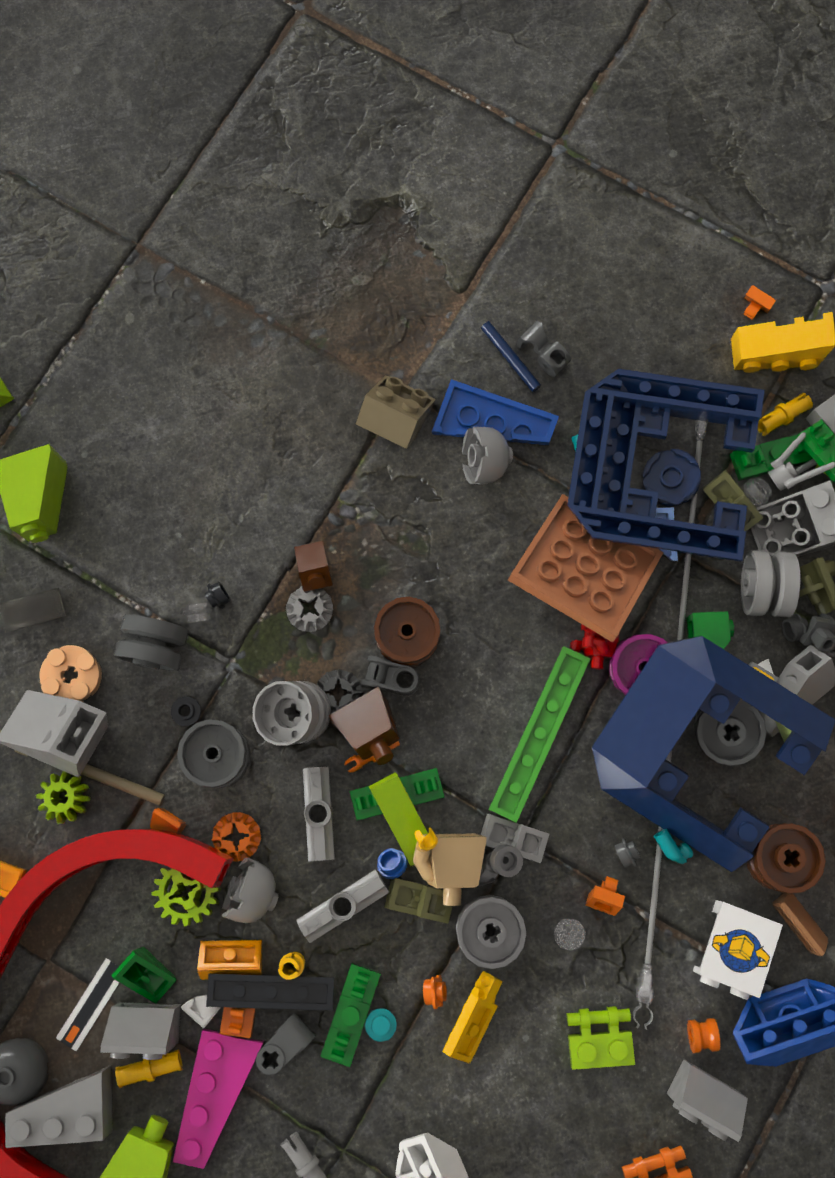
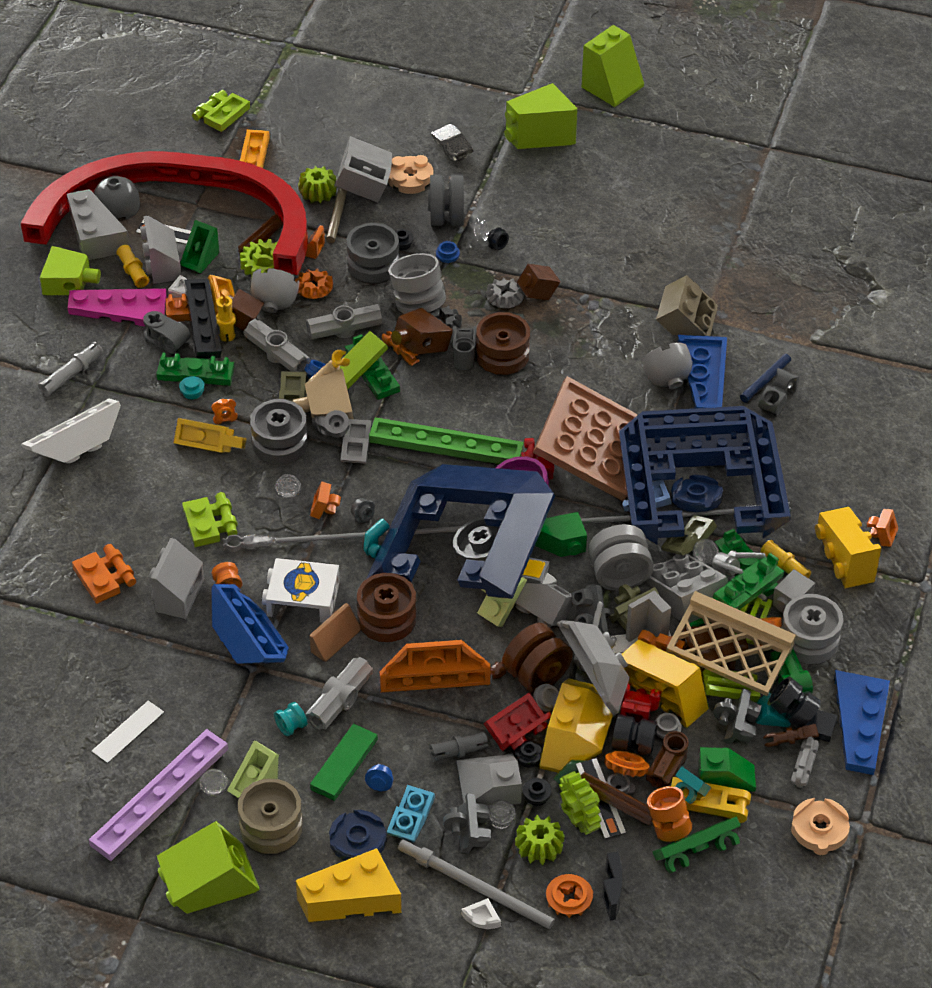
camera: 75 degrees right, 30 degrees down
(132, 889) = (262, 232): none -> reddish brown axle
(225, 660) = (447, 252): none -> blue plate
(273, 939) = (245, 308): none -> reddish brown brick

